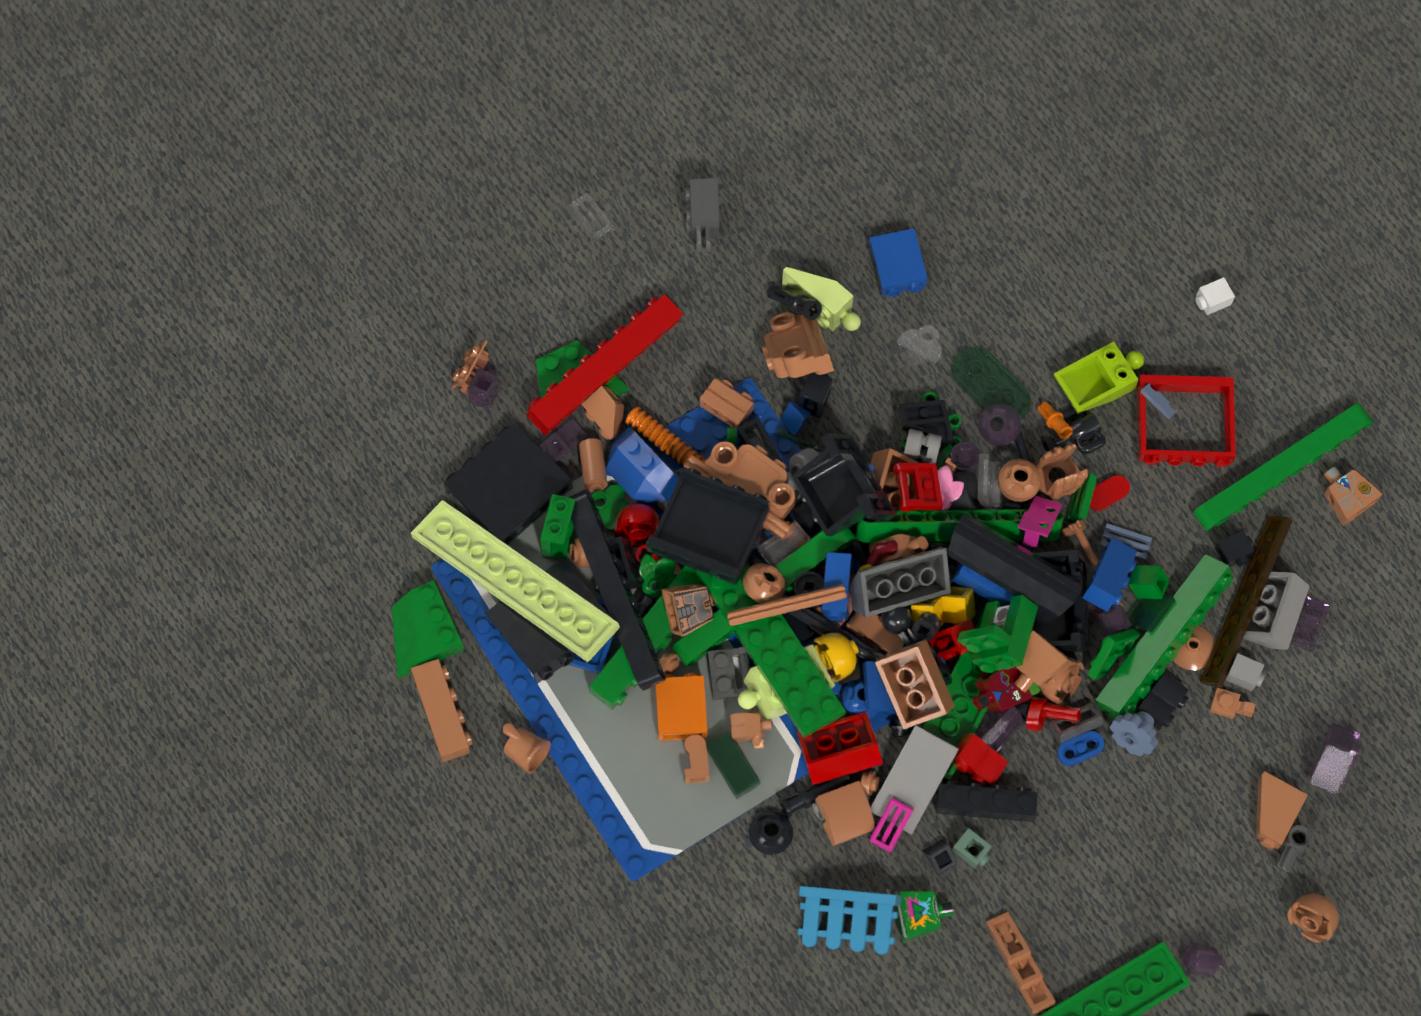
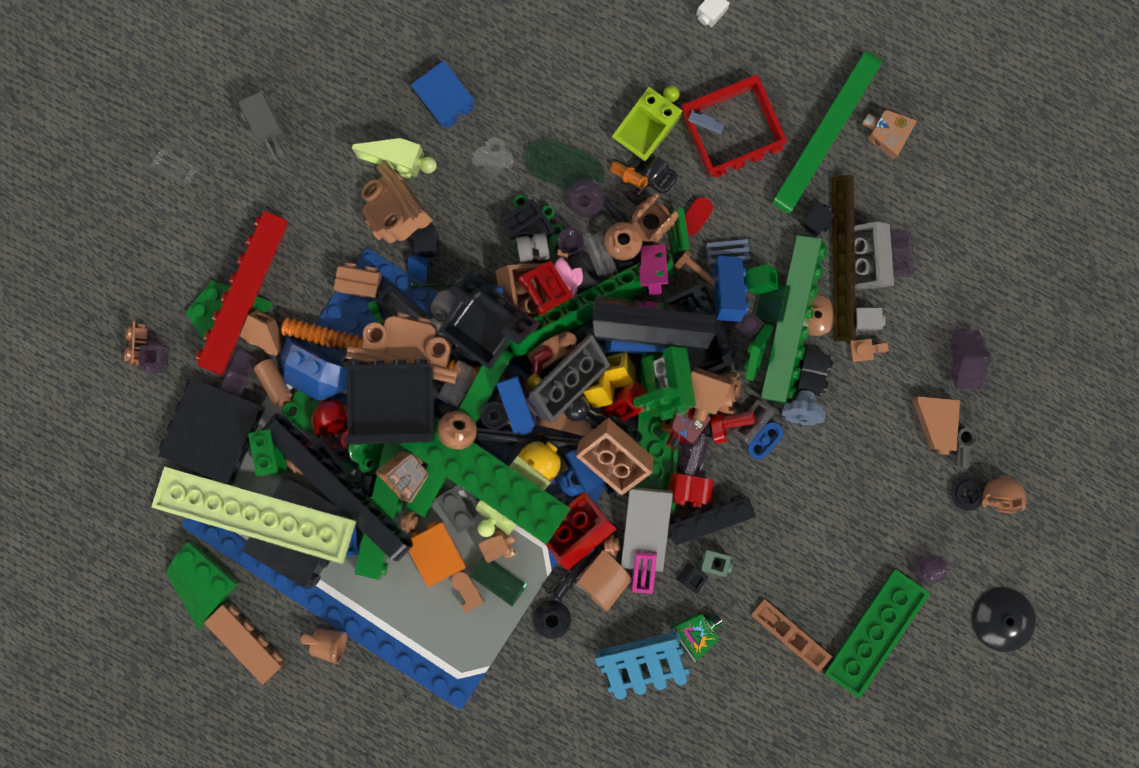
camera: 25 degrees left, 15 degrees up
(779, 294) = (378, 170): black pin -> none
(786, 605) = (483, 443): nougat axle -> none
(927, 620) = (603, 404): black wheel -> none
(1268, 892) = (972, 485): none -> black gear

